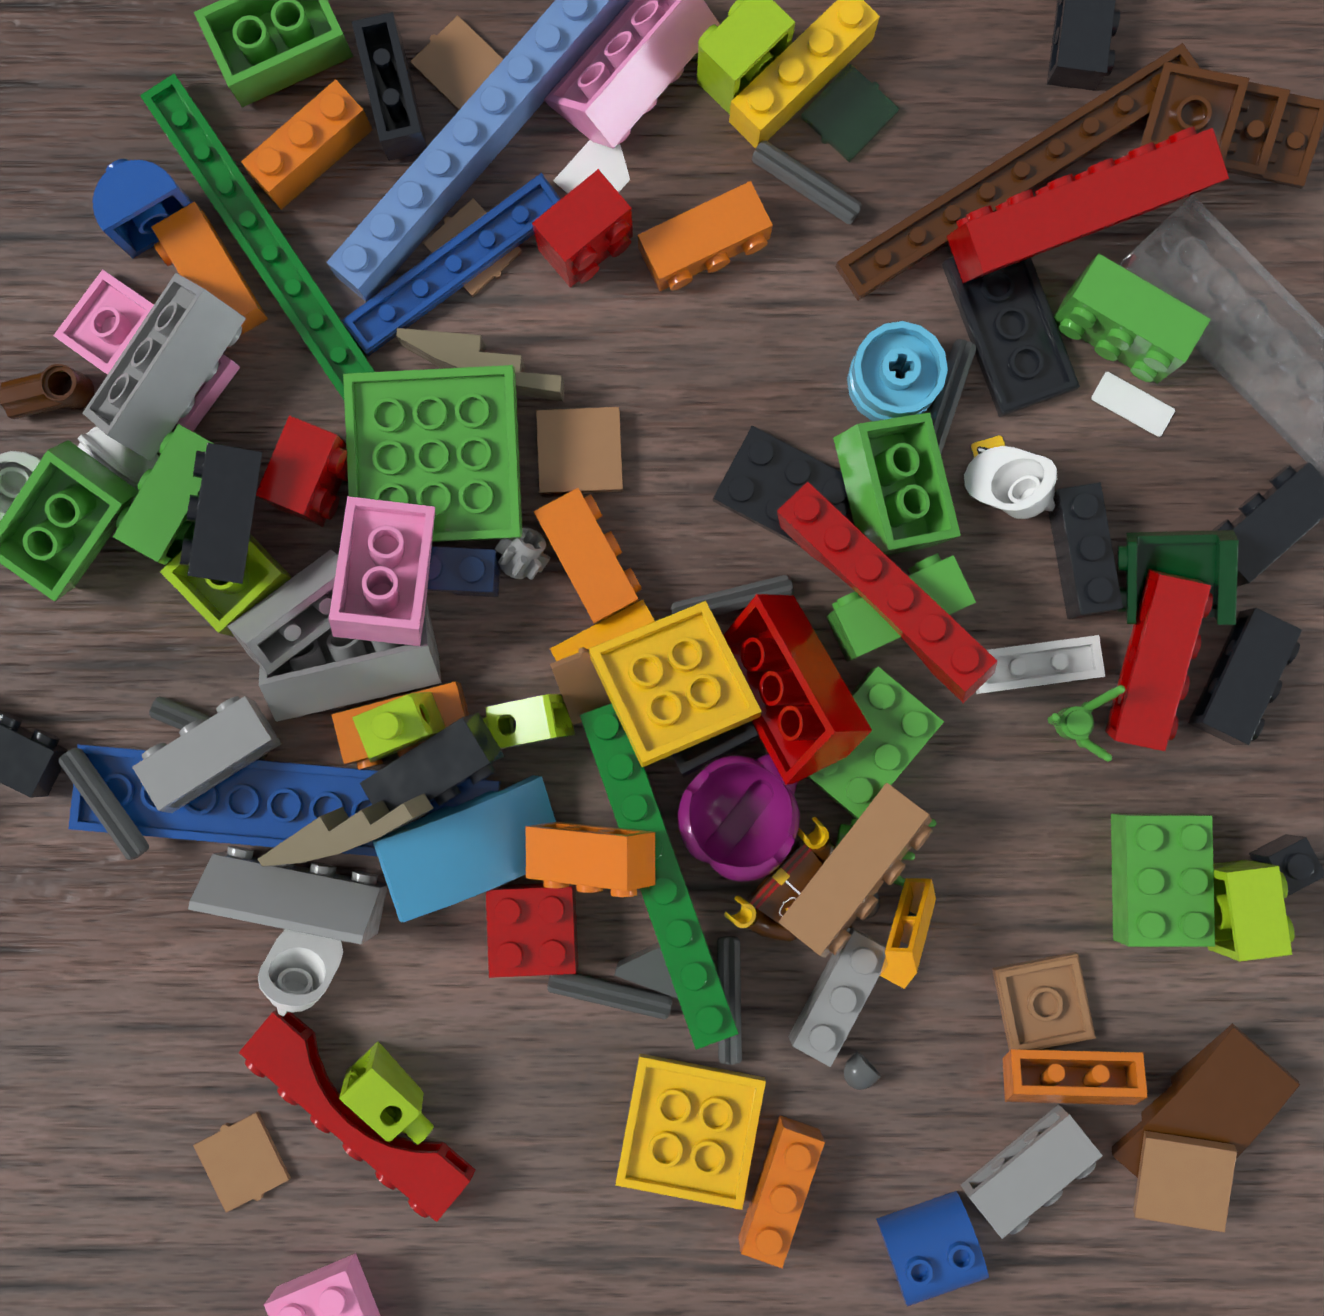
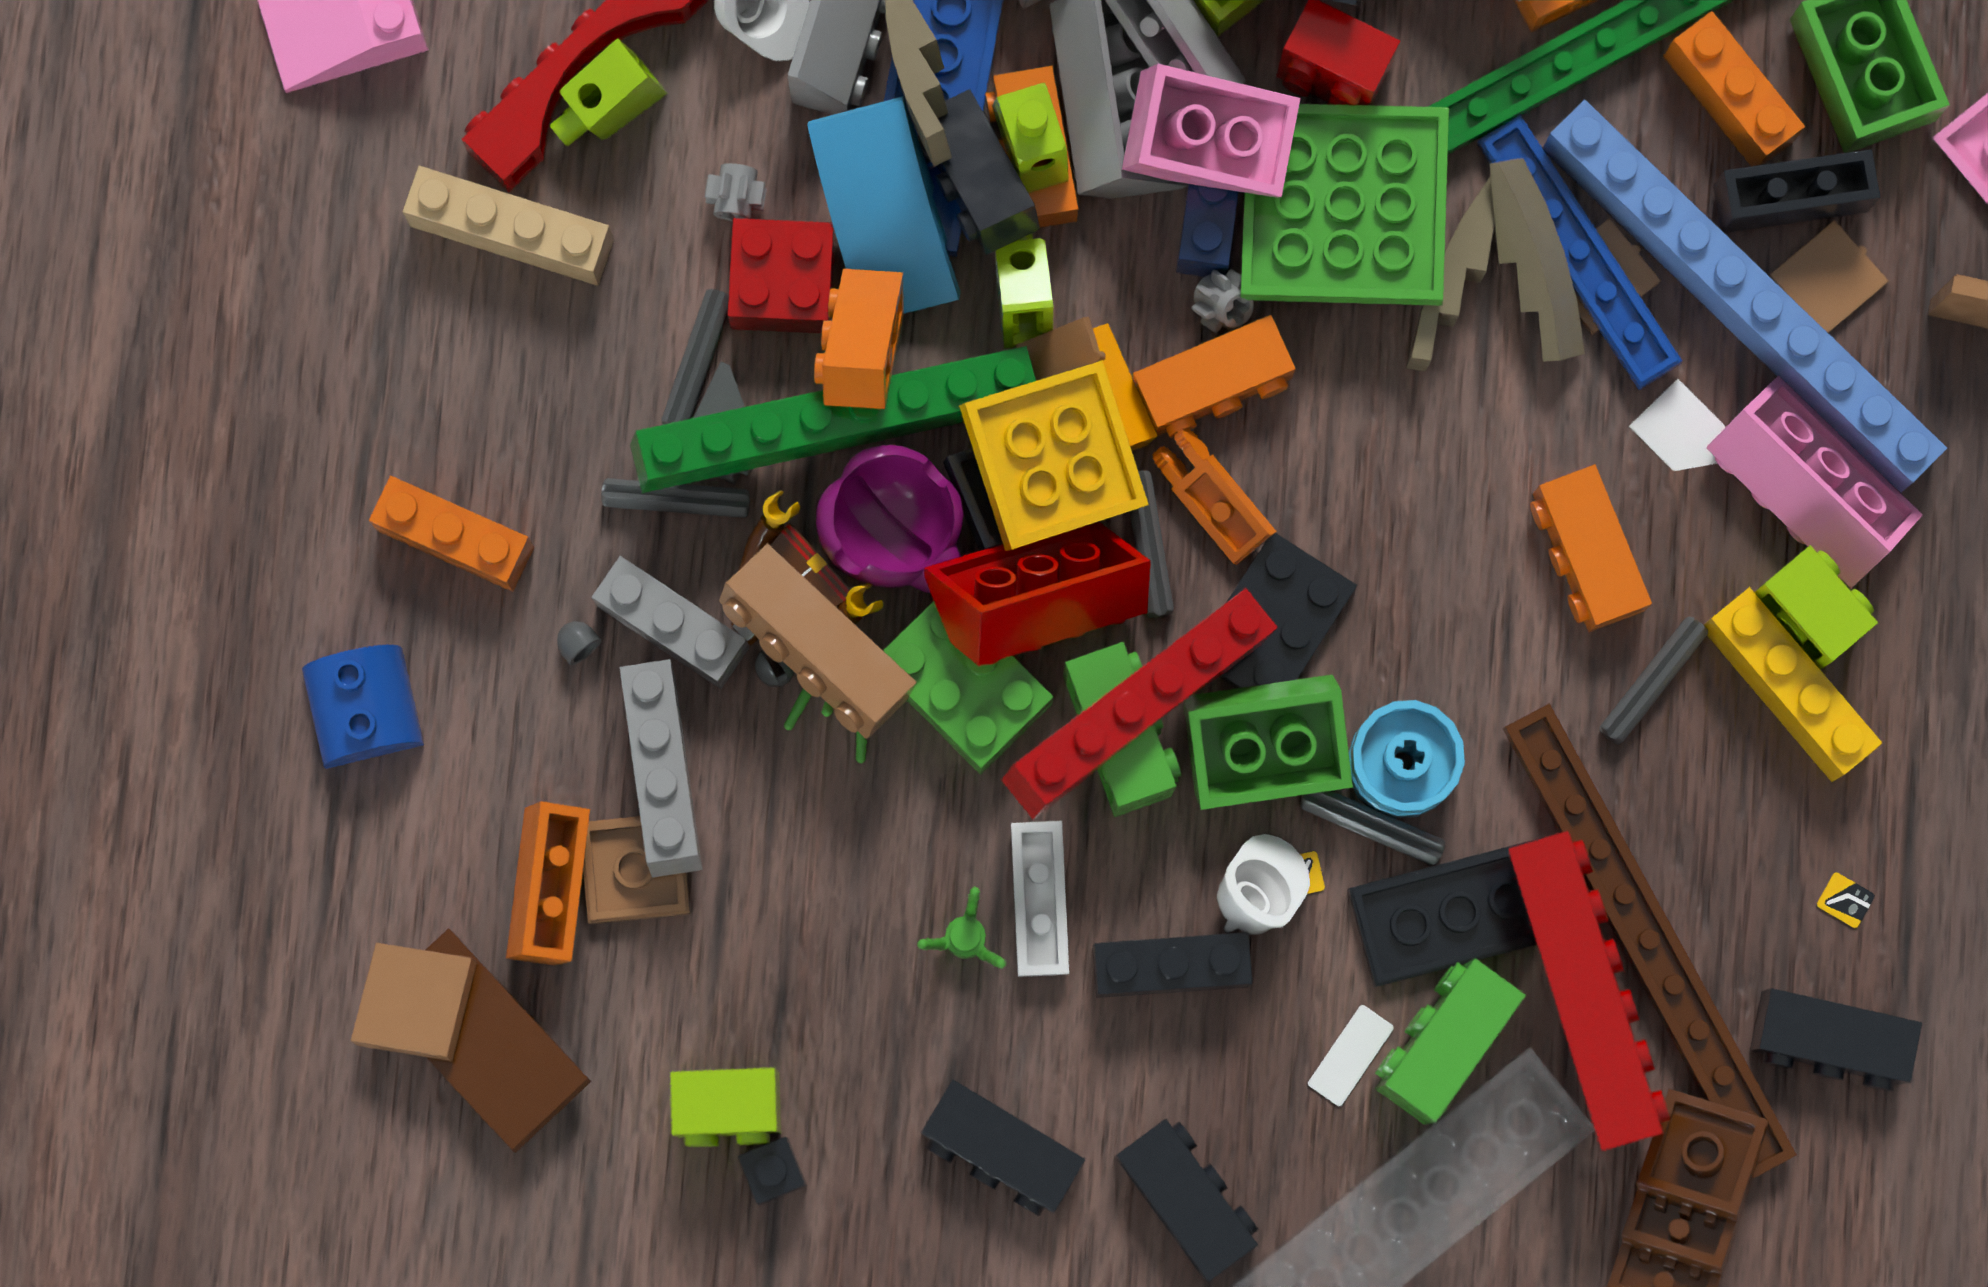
camera: 90 degrees right, 5 degrees down
(452, 300) = (1531, 241): none -> dark tan slope
(462, 976) = (735, 192): none -> light grey gear
(507, 1171) = (508, 225): none -> tan brick
(579, 450) = (1343, 380): medium nougat tile -> none
(584, 229) = (1604, 401): red brick -> none
(690, 548) = (1214, 498): none -> orange hinge
(690, 1131) = (529, 438): yellow plate -> none
(849, 112) = (1739, 743): clear green piece -> none
(903, 963) = (741, 701): light orange piece -> none
(967, 22) = (1845, 900): none -> sticker
(969, 991) = (660, 768): none -> light grey brick
(1031, 1171) = (440, 829): light grey brick -> none
(1159, 660) = (1033, 1034): red brick -> none
(1162, 879) = (769, 1017): bright green brick -> none
(1190, 554) = (1132, 1068): dark green panel -> none

